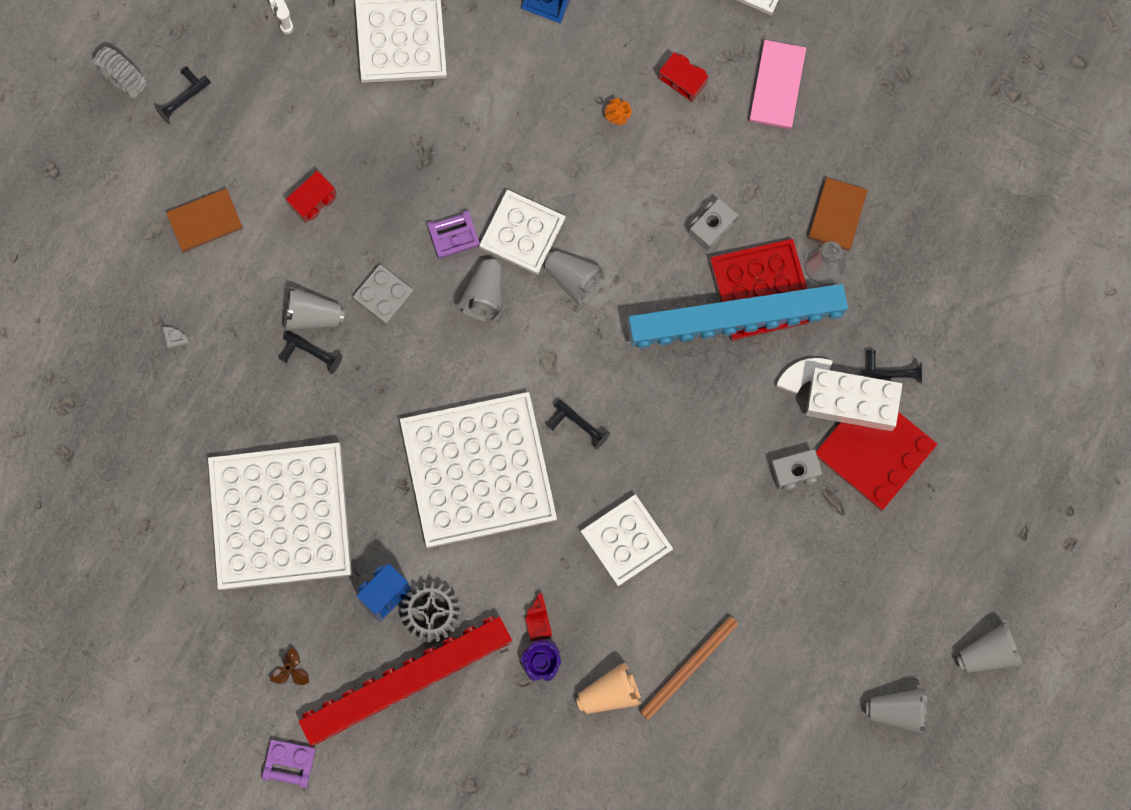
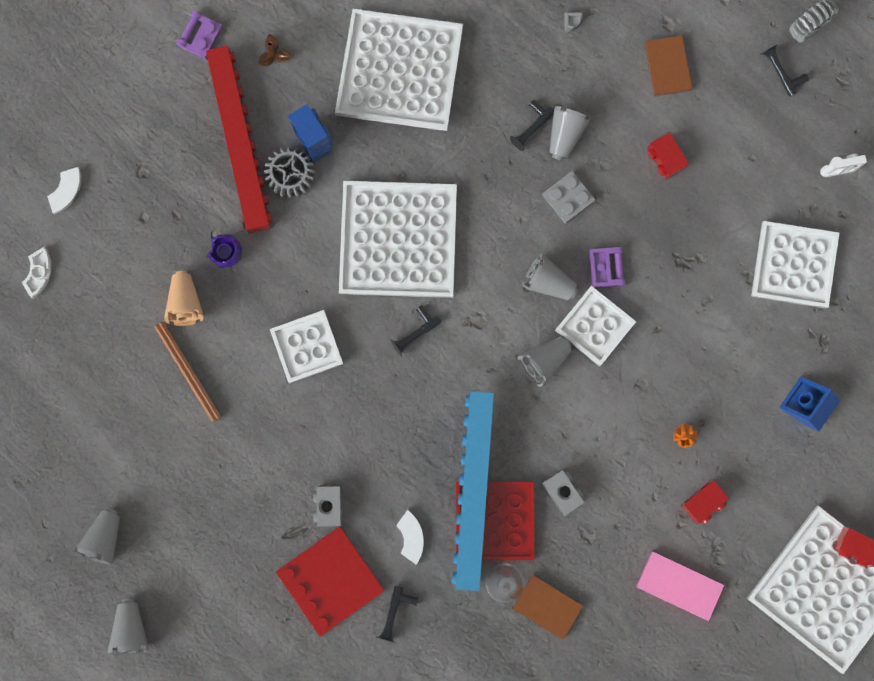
camera: 110 degrees right, 5 degrees up
(538, 621) = (260, 258): red slope -> none
(854, 399) = (374, 572): white brick -> none

